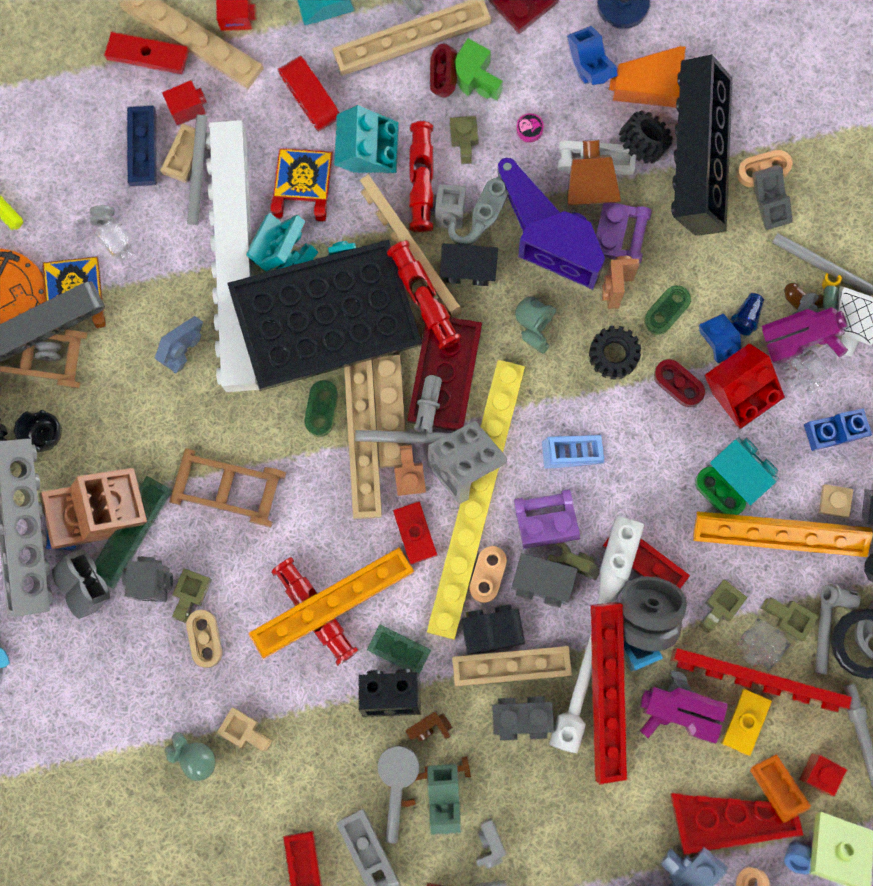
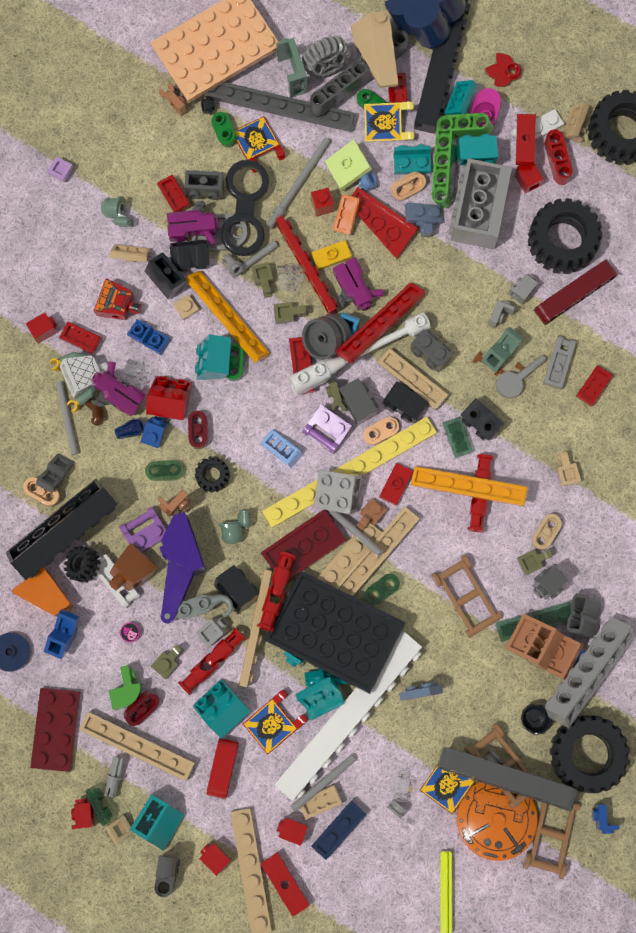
camera: 140 degrees left, 0 degrees up
(194, 758) = (602, 478): sand green piece -> none
(424, 727) = (480, 390): reddish brown bracket -> none
(428, 404) = (329, 535): light grey axle -> none

